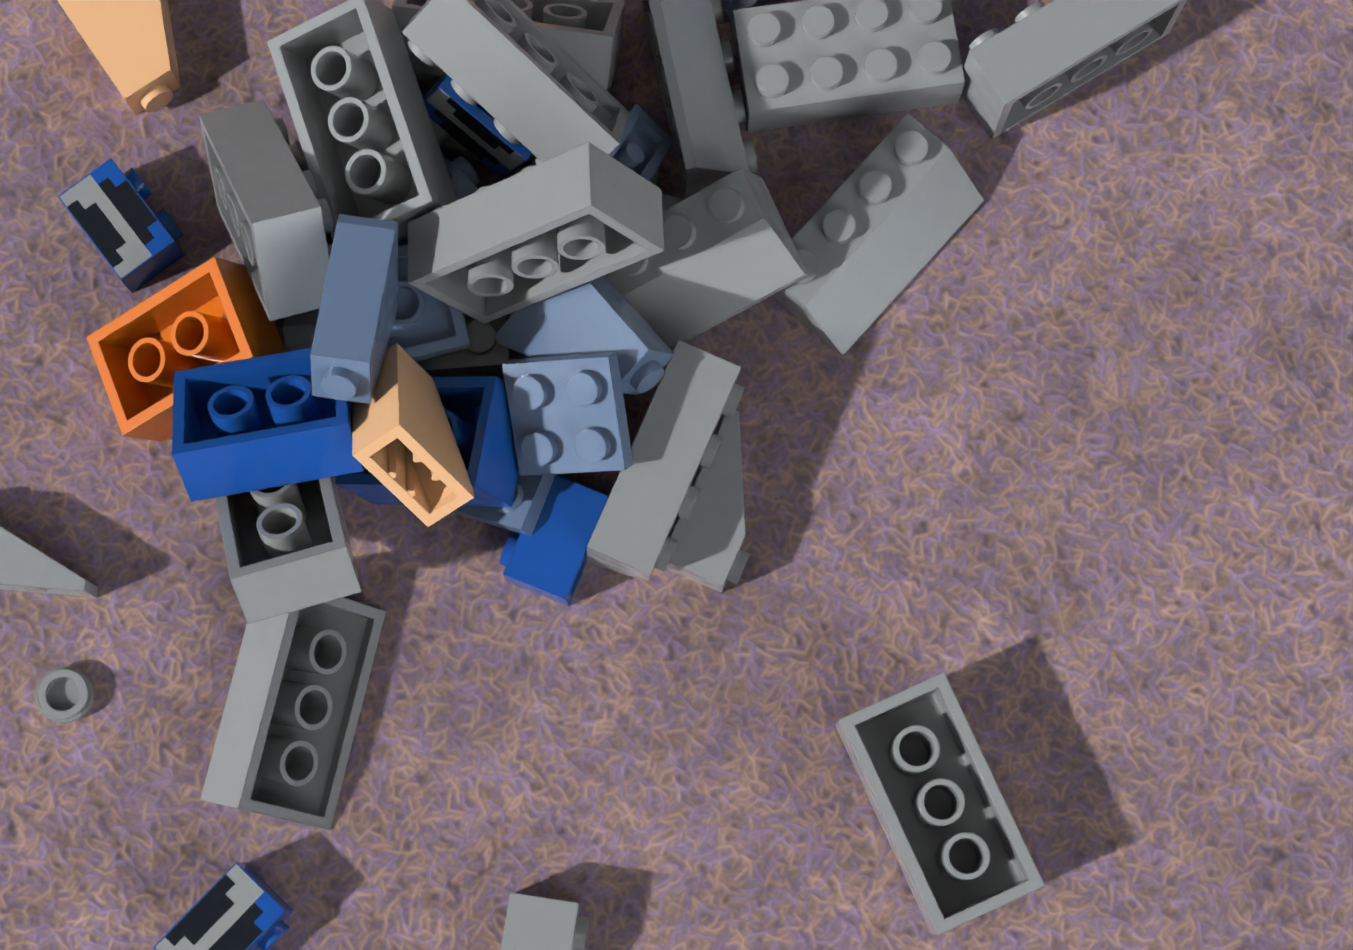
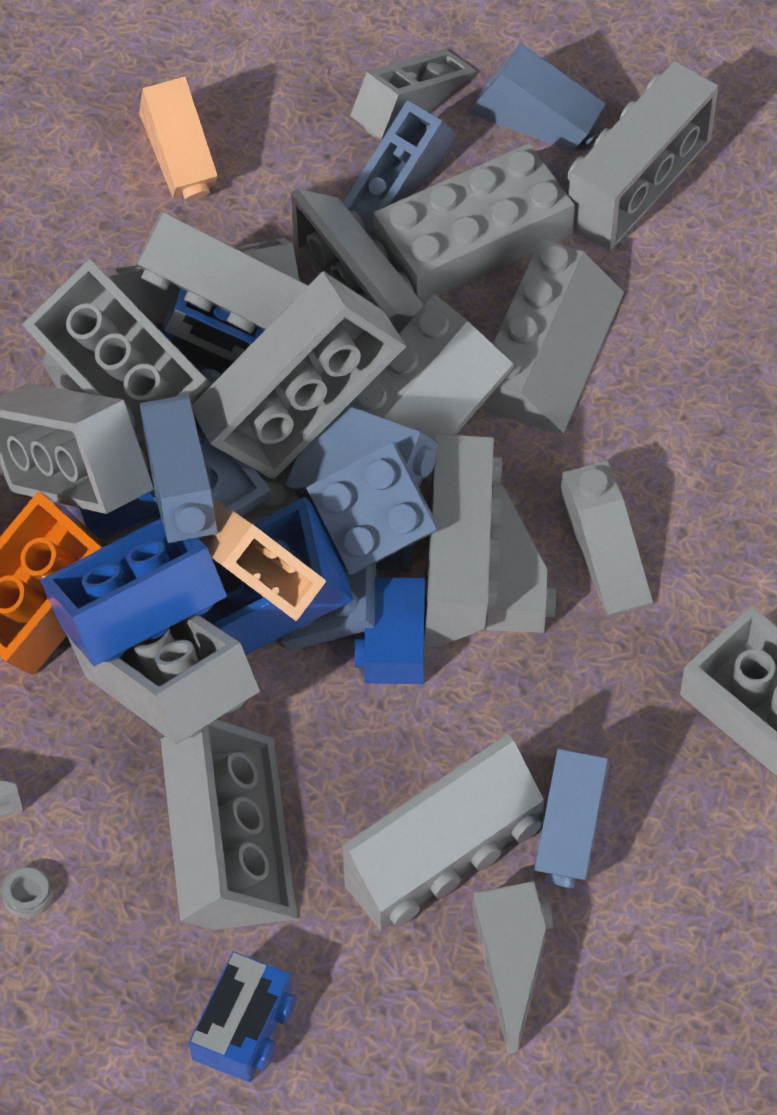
camera: 20 degrees left, 20 degrees down
(505, 812) = (443, 834): none -> light grey slope
(655, 833) = (571, 817): none -> sand blue slope
(830, 513) = (605, 537): none -> light grey slope

